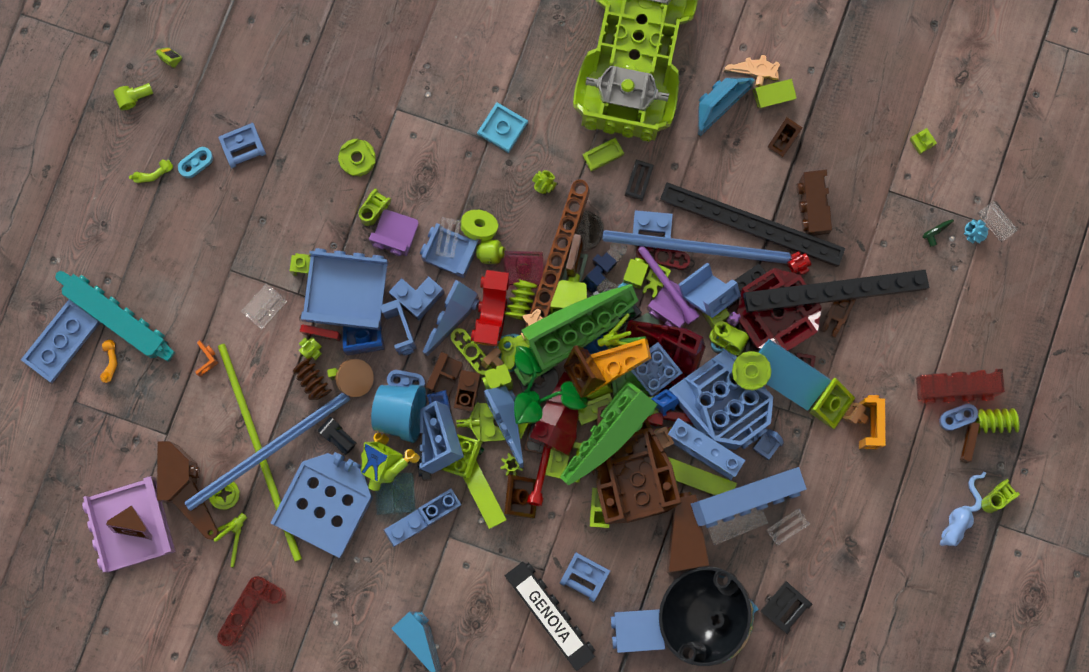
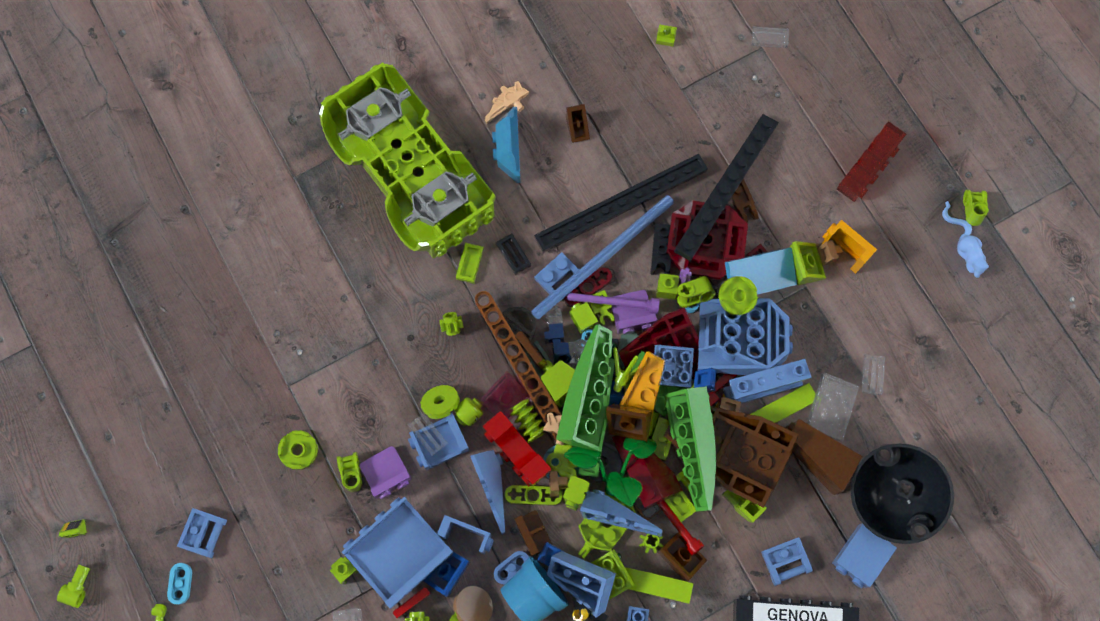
camera: 55 degrees left, 5 degrees down
(417, 301) = (456, 503): medium blue brick -> none
(467, 390) = (563, 525): reddish brown slope -> none
(502, 127) = (379, 318): medium azure tile -> none
(708, 292) = (647, 276): medium blue panel -> none
(749, 496) = (831, 383): medium blue brick -> none
(768, 444) = (800, 335): medium blue tile -> none
(774, 93) = (538, 103): lime hinge -> none
(781, 602) = (928, 428): black plate -> none
(799, 263) = (681, 194): red gear -> none
(814, 203) = (645, 145): reddish brown wedge -> none
(936, 230) = (739, 89): dark green bar -> none
(957, 417) = (891, 185): medium blue plate -> none
(969, 442) = (918, 192): reddish brown tile -> none
(976, 231) = (765, 56): medium azure gear -> none
(998, 419) = (917, 160): lime piece -> none

